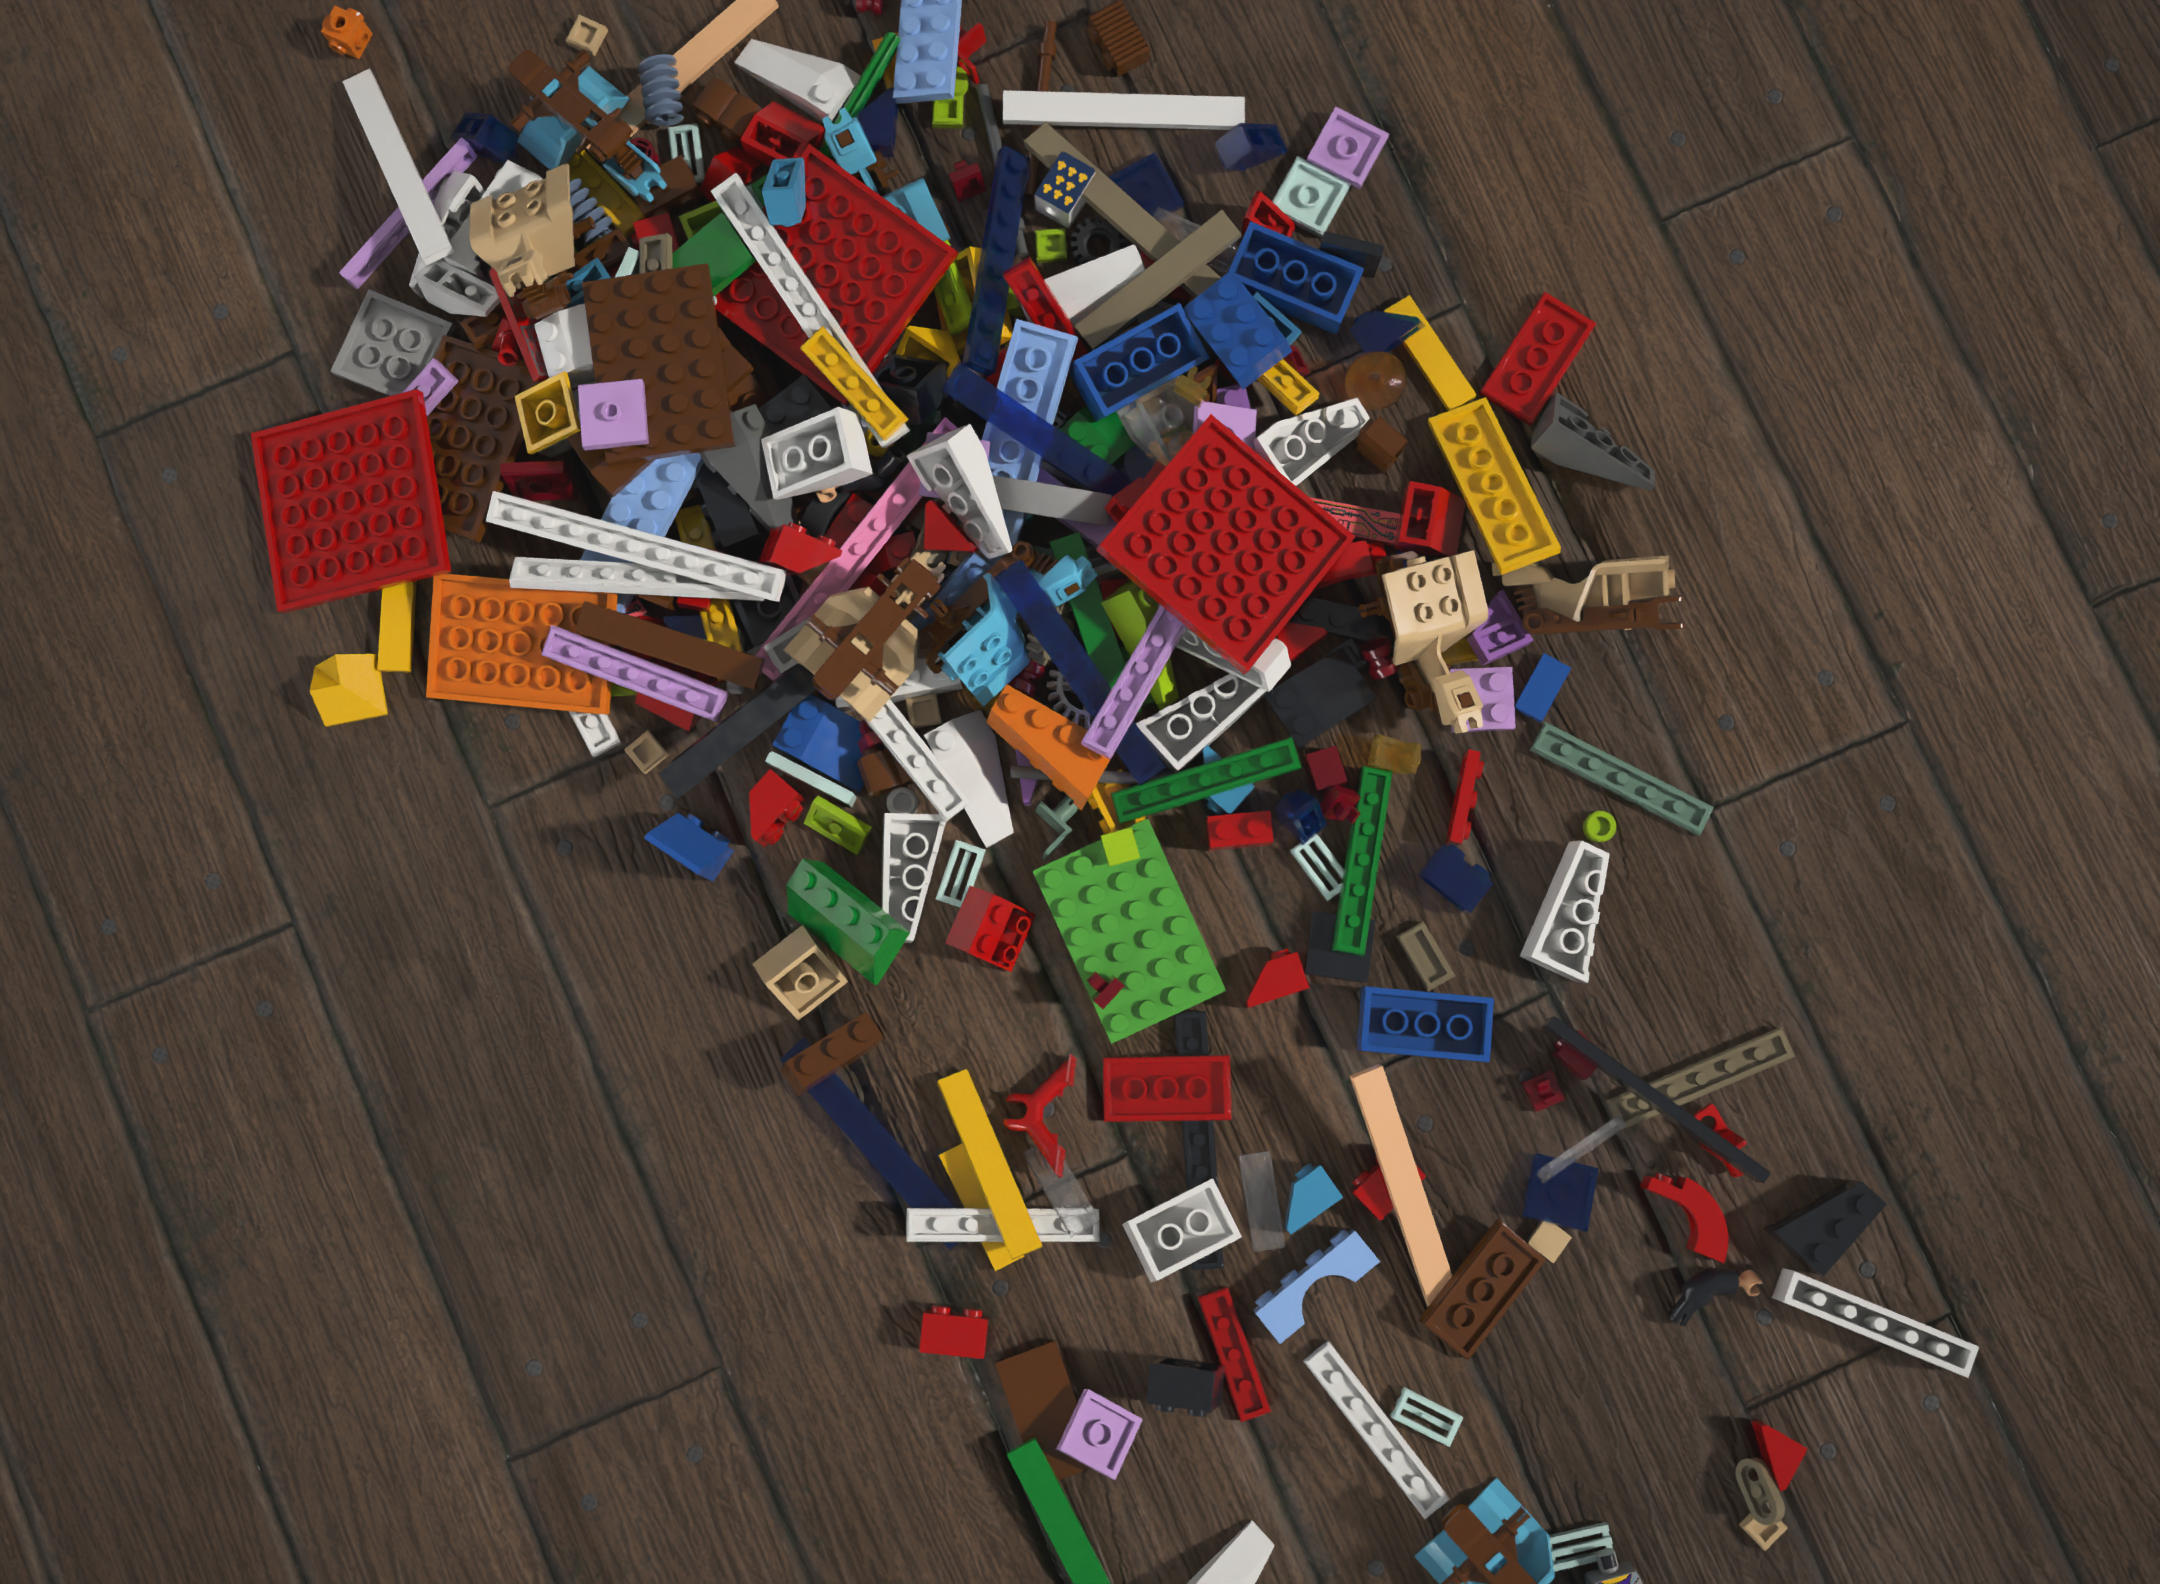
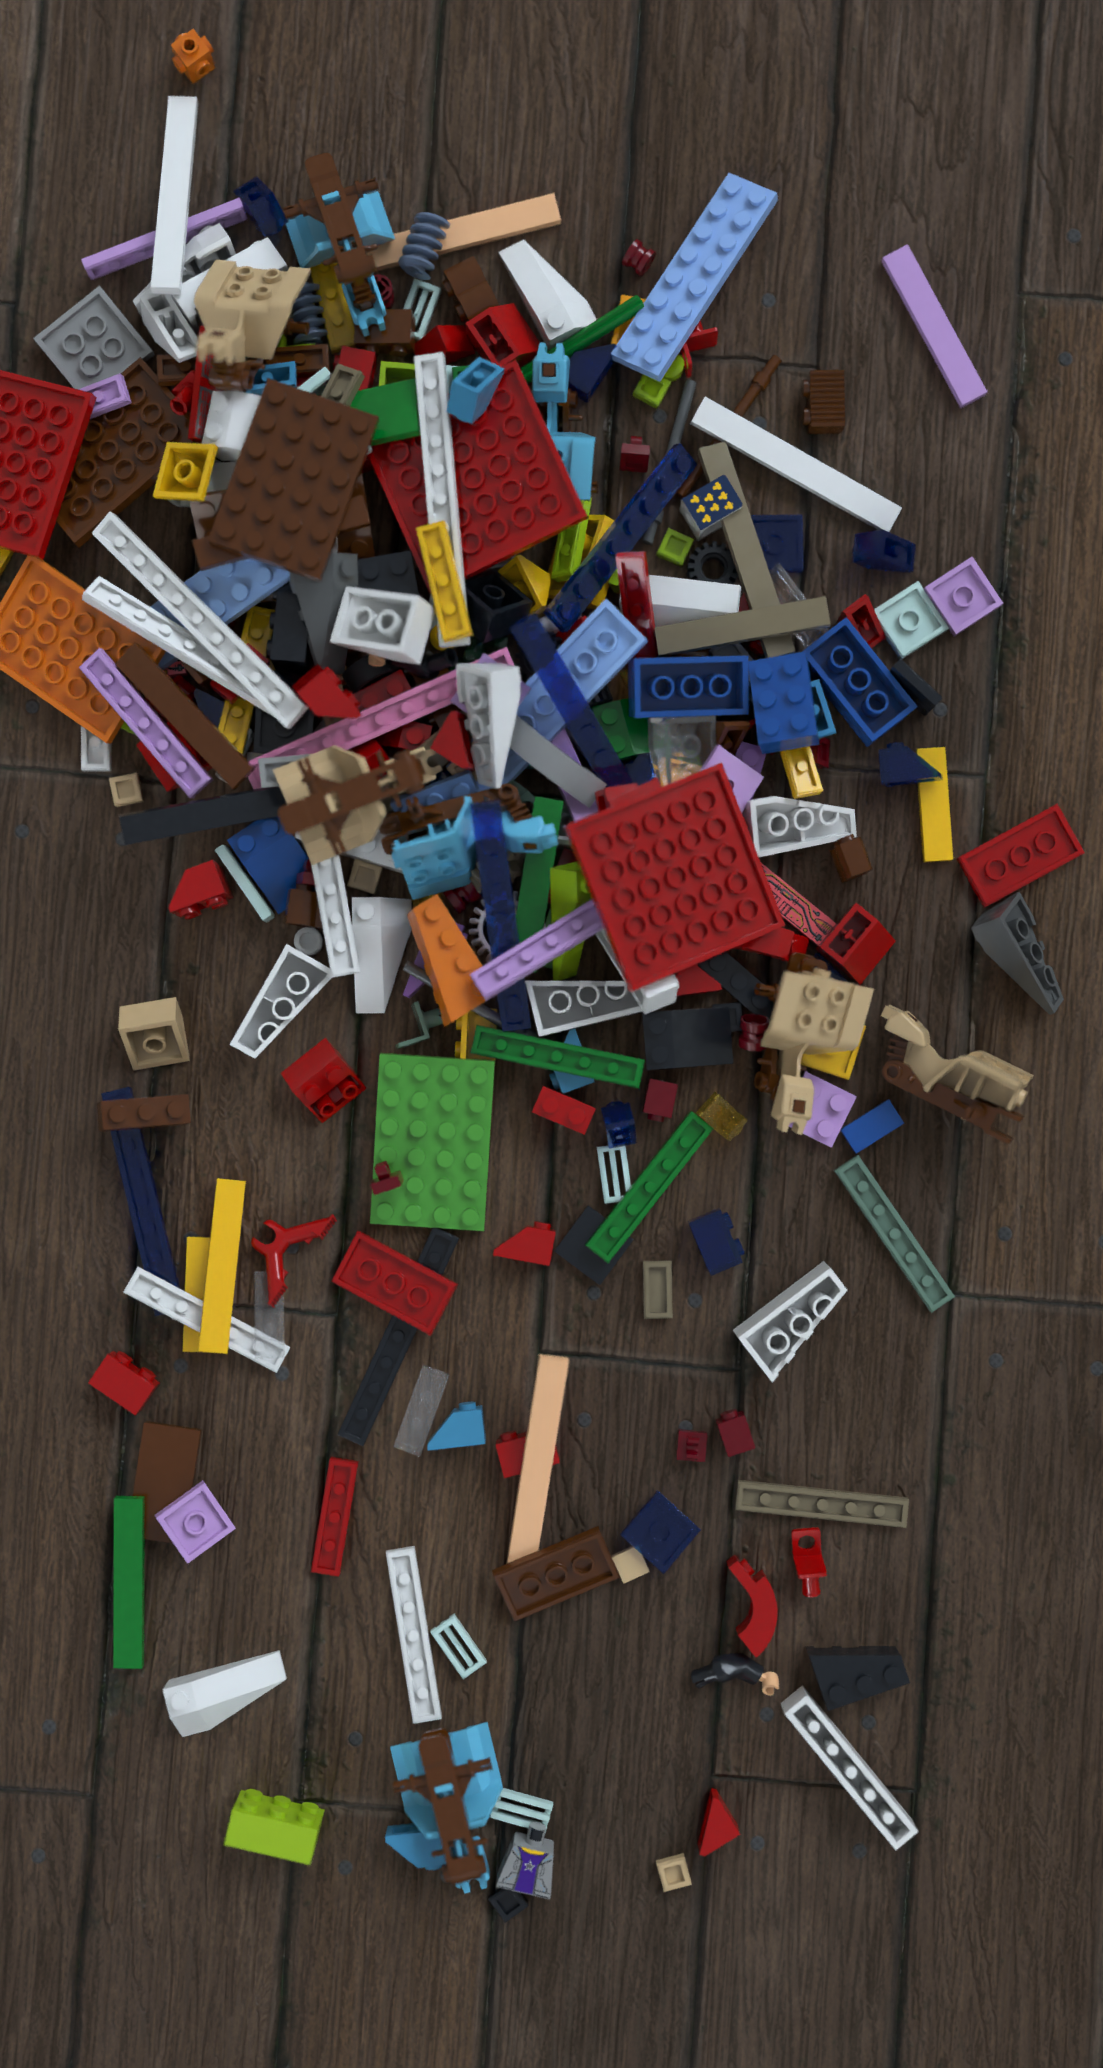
camera: 25 degrees right, 5 degrees up
(539, 480) = (153, 522): dark red tile -> none
(586, 35) = (389, 163): tan tile -> none
(613, 414) = (233, 504): lavender plate -> none
(691, 845) = (119, 886): blue slope -> none
(837, 825) = (246, 931): lime plate -> none
(844, 919) = (210, 1011): green slope -> none
(951, 863) = (341, 1008): light aqua tile -> none
(1120, 846) = (458, 1073): lime tile -> none
(1181, 1230) = (344, 1400): white slope -> none
(1185, 1385) = (281, 1522): black brick -> none
(1191, 390) = (717, 734): clear yellow tile -> none
(1283, 1309) = (462, 1491): light blue arch -> none
(1340, 804) = (655, 1133): dark red tile -> none
(1380, 392) = (873, 813): clear orange dish -> none
(1425, 1024) = (625, 1344): blue brick -> none
(1464, 798) = (759, 1181): red plate -> none
(1494, 486) = (922, 943): yellow plate -> none
(1500, 633) = (863, 1064): medium lavender wing -> none
(1581, 1149) = (694, 1508): clear tile -> none
(1599, 826) = (854, 1262): lime tile -> none
(1656, 1100) = (773, 1504): black tile -> none
(1760, 1491) = (685, 1845): dark tan plate -> none

